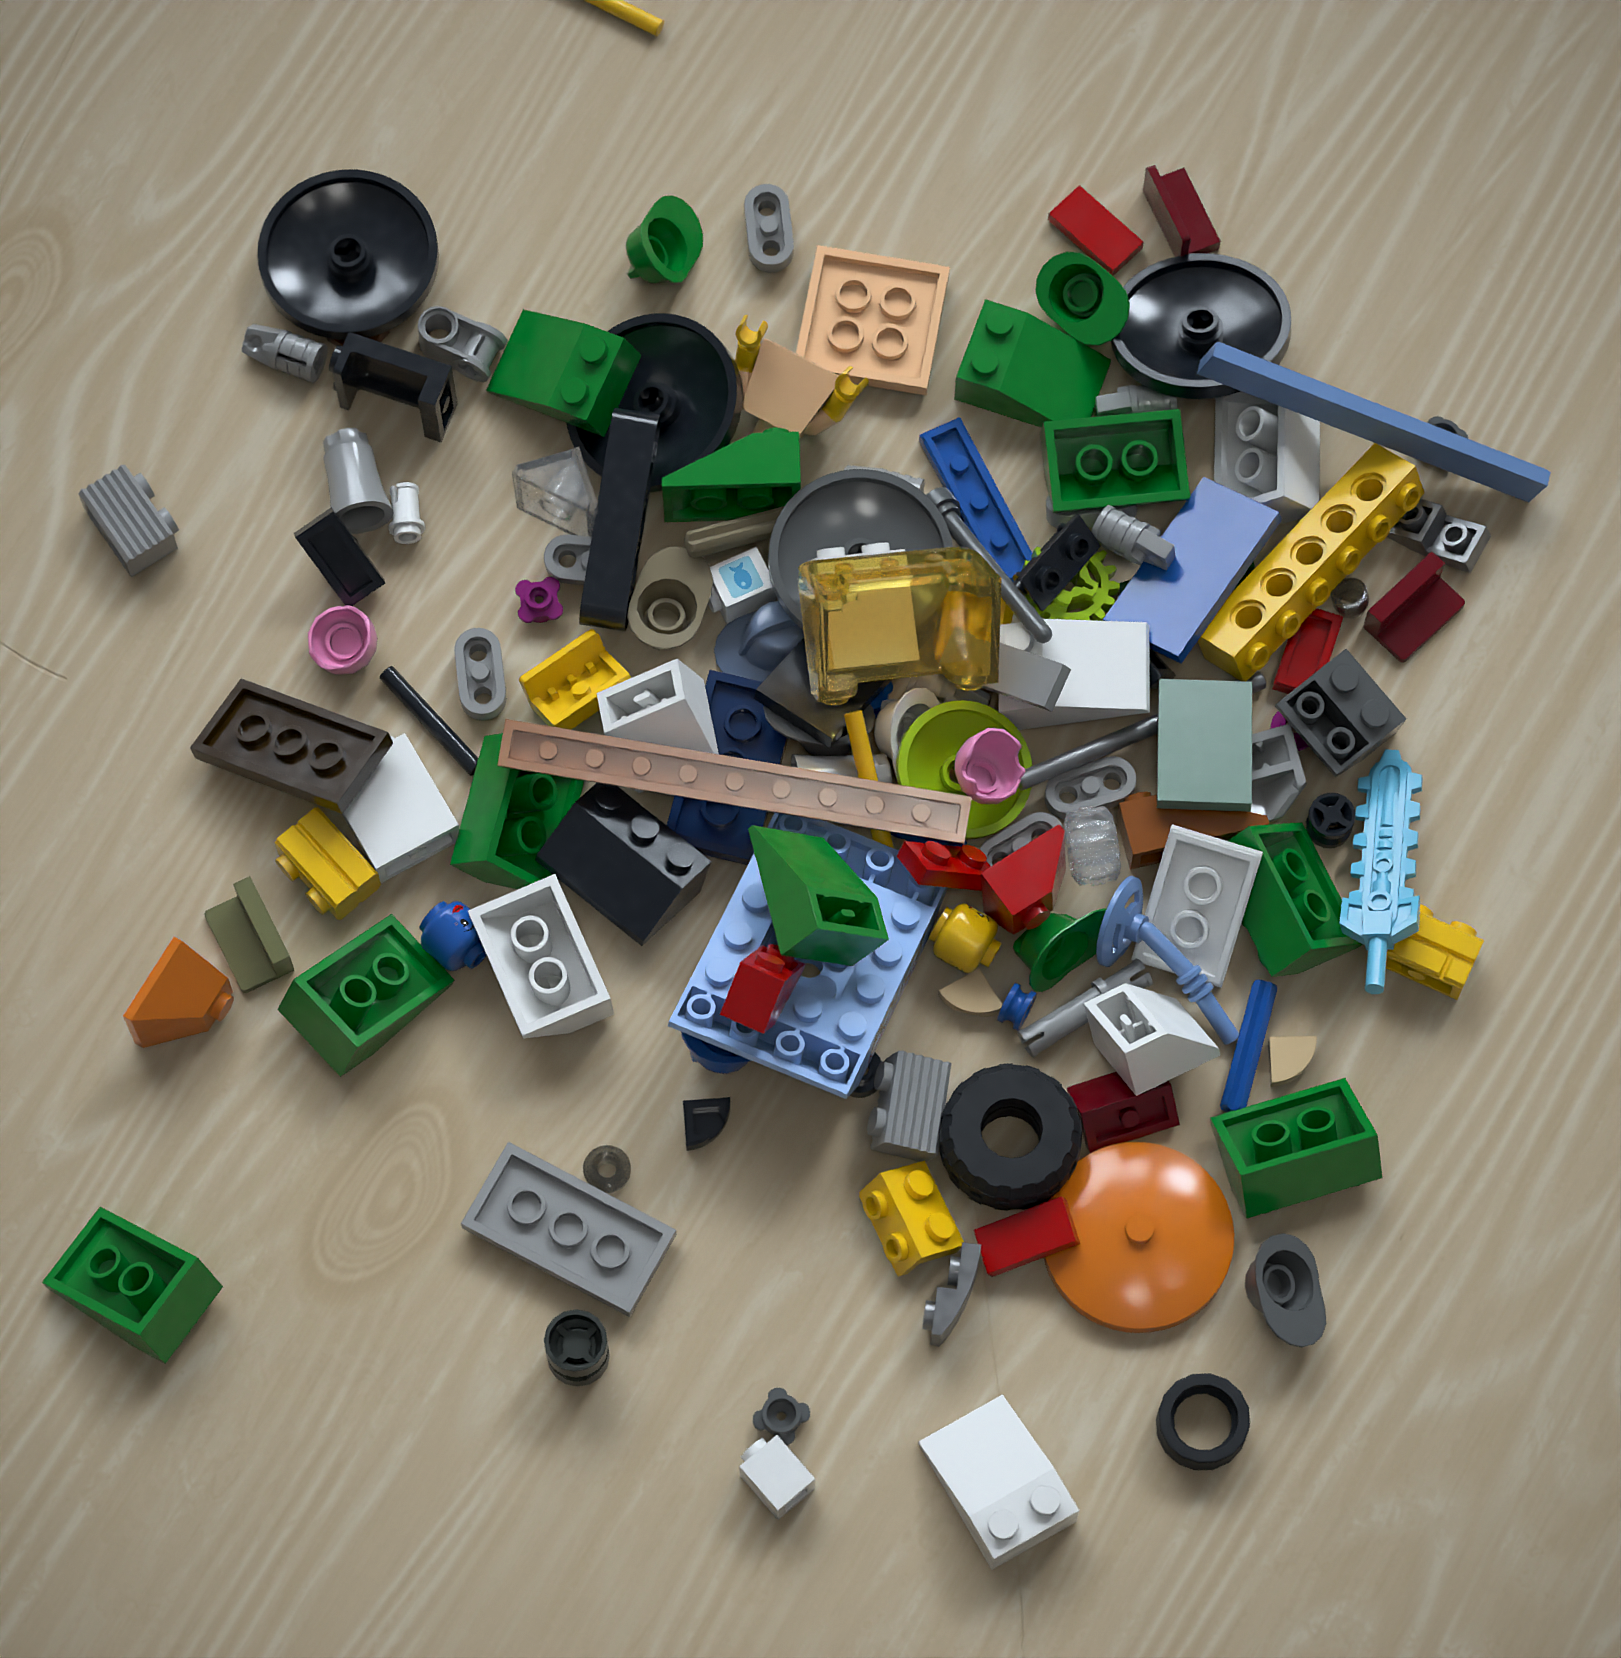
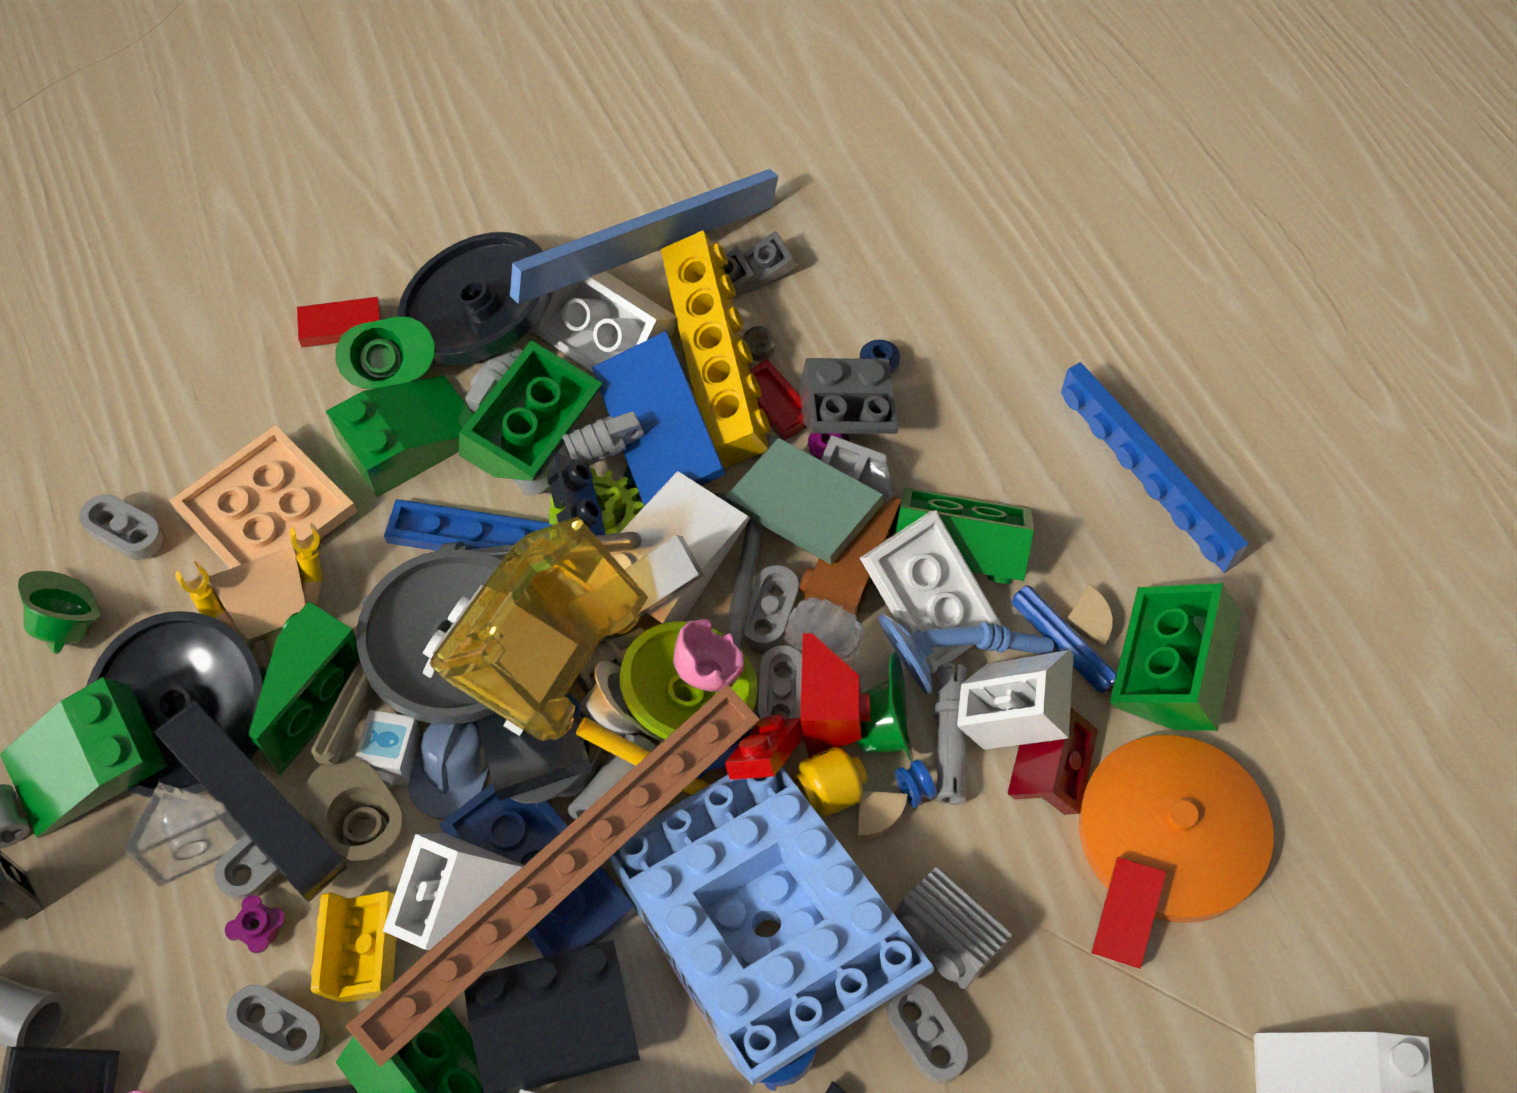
camera: 55 degrees left, 10 degrees down
(406, 516) = (83, 990): white pin -> none
(761, 988) = (788, 969): red slope -> none
(815, 1144) = (928, 1033): none -> light grey plate
(816, 899) = (732, 865): green slope -> none
(910, 1217) = (1048, 1000): yellow bracket -> none
(946, 1311) = (1156, 1027): flat silver slope -> none
(1017, 1093) = (1052, 826): black tyre -> none
(1180, 212) = (375, 263): dark red panel -> none
(1227, 1394) = (1403, 863): black tyre -> none
(1287, 1290) = (1301, 744): dark grey piece -> none
(1333, 810) = (925, 455): black wheel -> none
(1383, 907) = (1025, 469): medium azure bar -> none
(1413, 609) = (797, 315): dark red panel -> none
(1423, 724) = (882, 348): none -> dark blue plate
(1436, 954) = (1071, 467): yellow brick -> none
(1475, 1033) = (1158, 473): none -> blue plate

